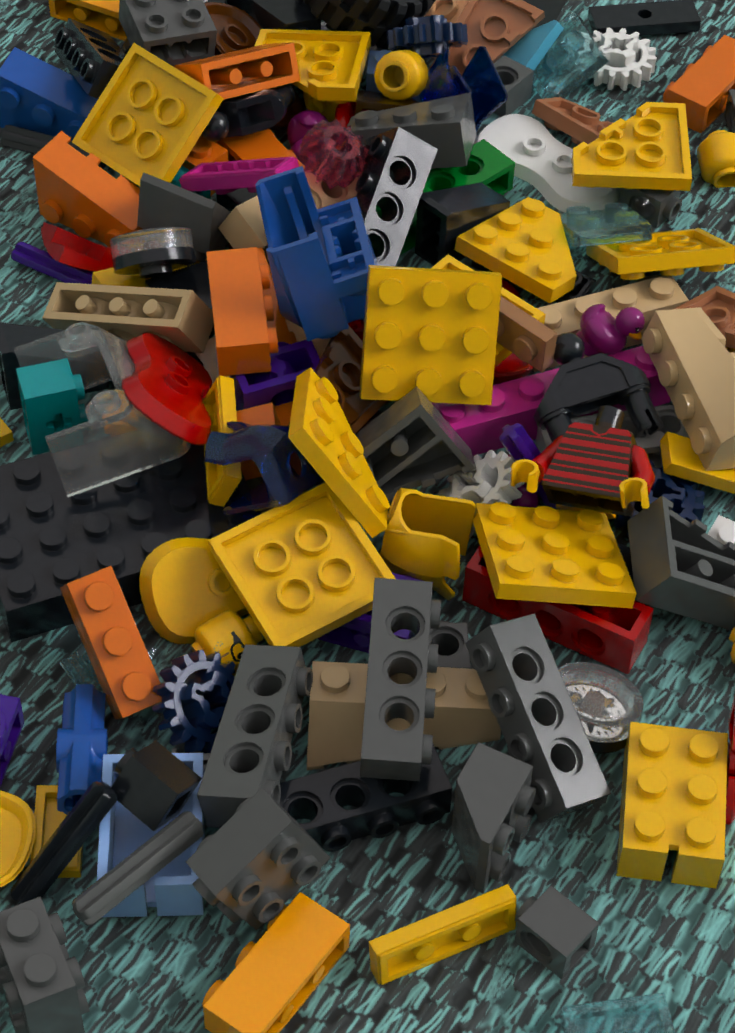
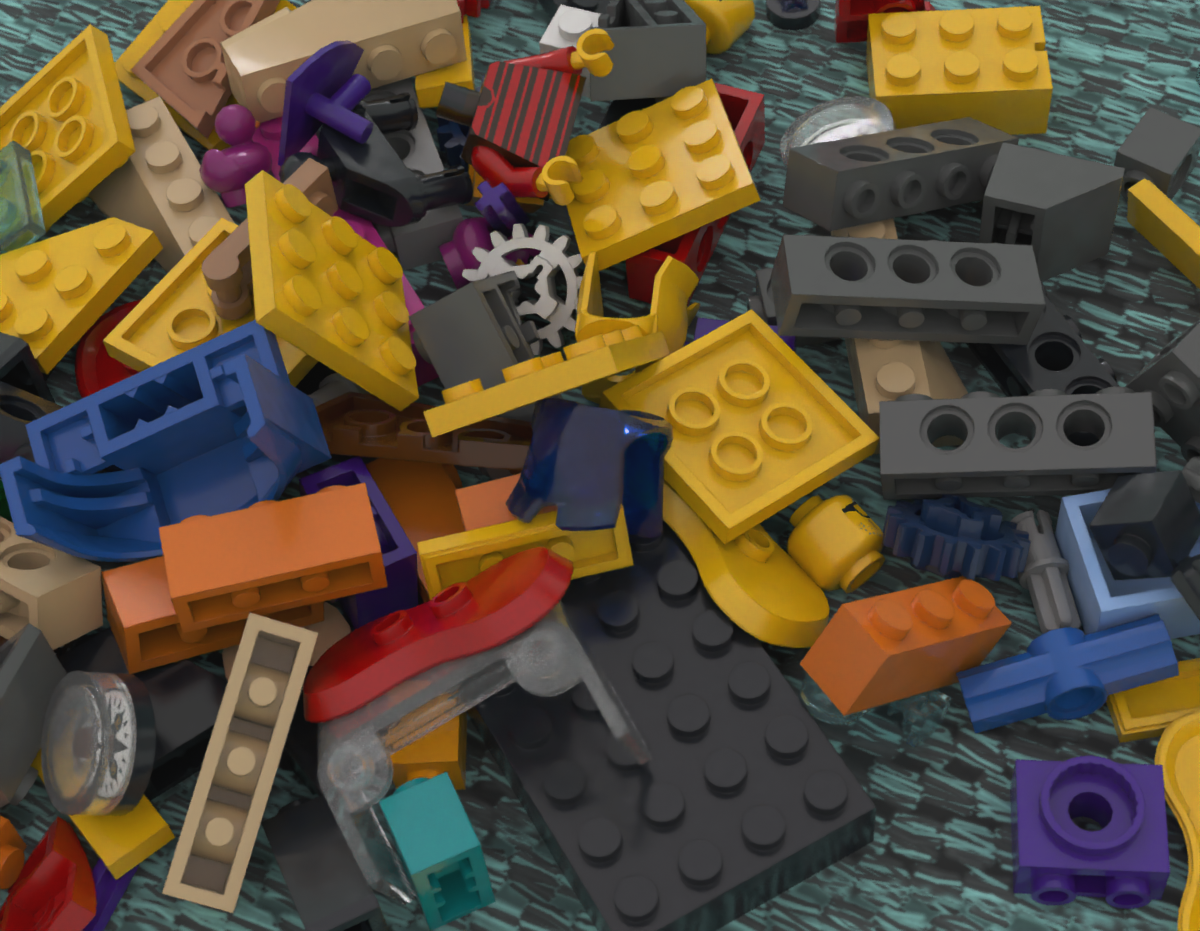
camera: 90 degrees left, 5 degrees up
(628, 350) = (324, 93): none -> dark purple shield

